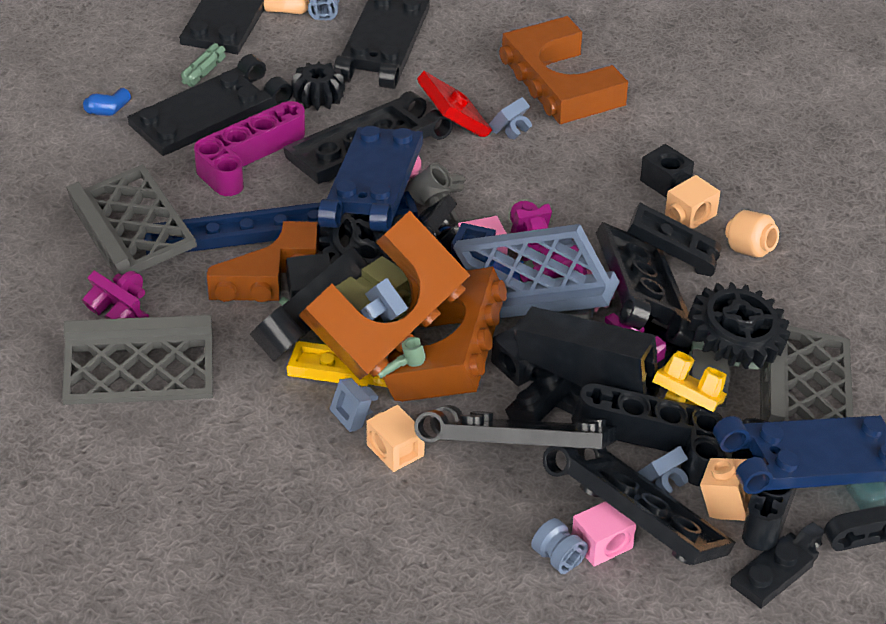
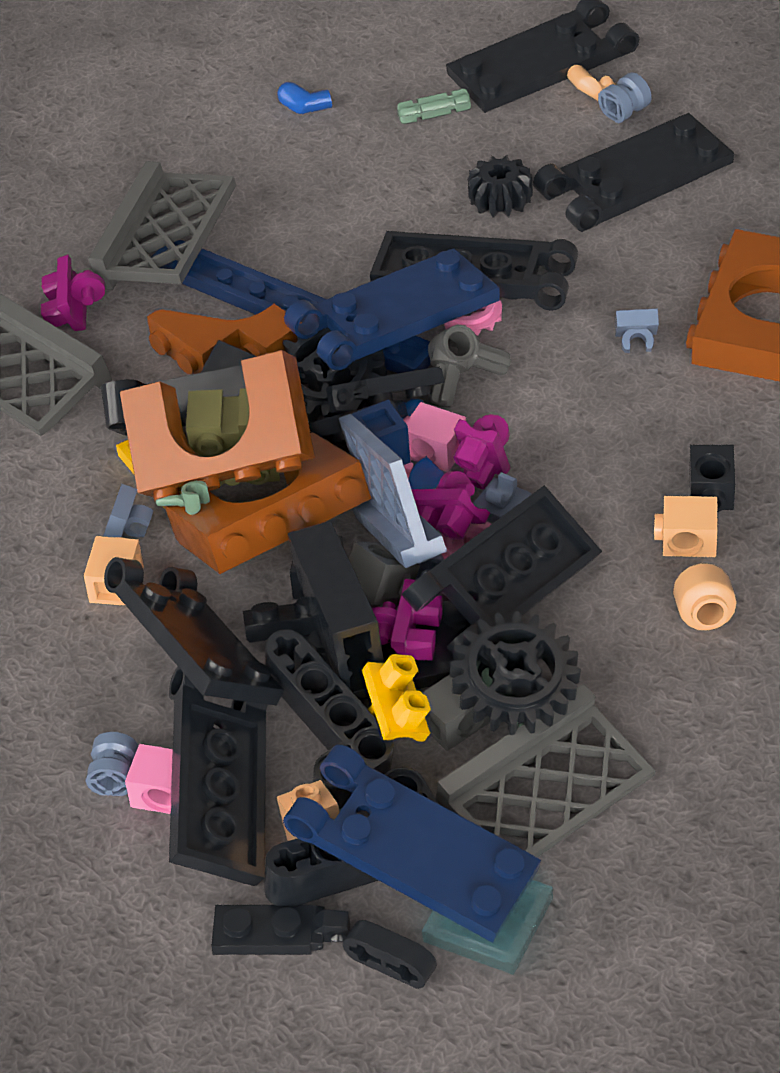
camera: 50 degrees right, 5 degrees up
(209, 106) = (384, 153): black hinge -> none
(225, 152) = (358, 207): magenta beam -> none
(384, 302) = (202, 431): tile -> none
(454, 104) = (589, 279): red plate -> none
(665, 468) = (290, 762): sand blue tile -> none
(675, 239) = (609, 550): black plate -> none

